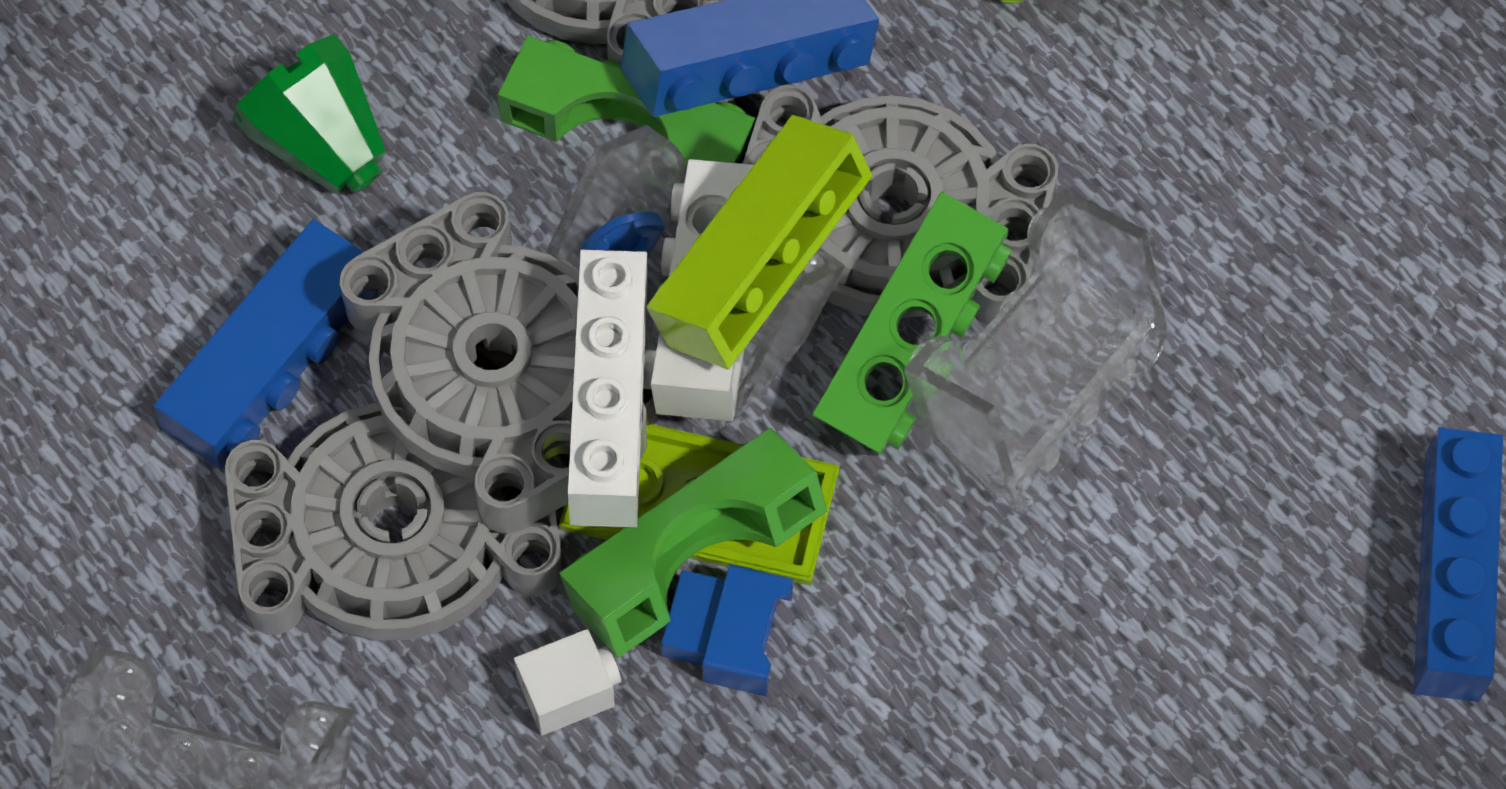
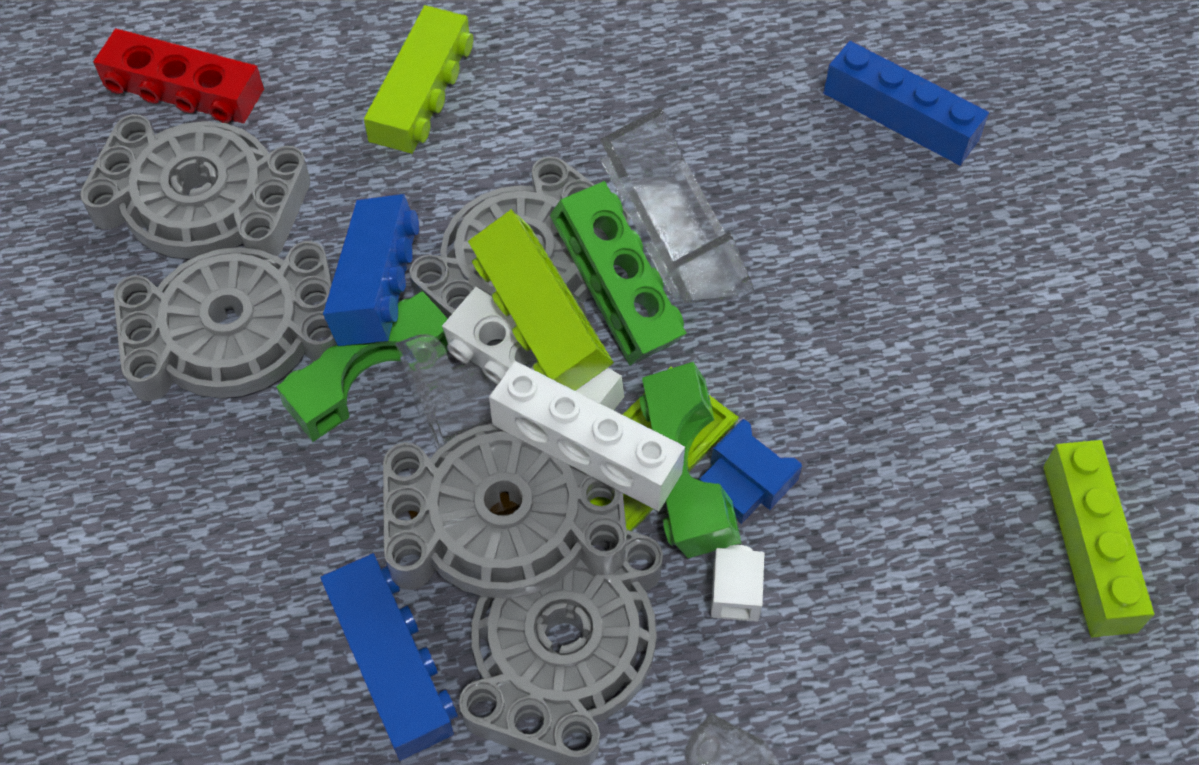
camera: 60 degrees left, 5 degrees down
(316, 118) = (244, 541): green cone -> none
(627, 233) = (456, 403): blue tile -> none

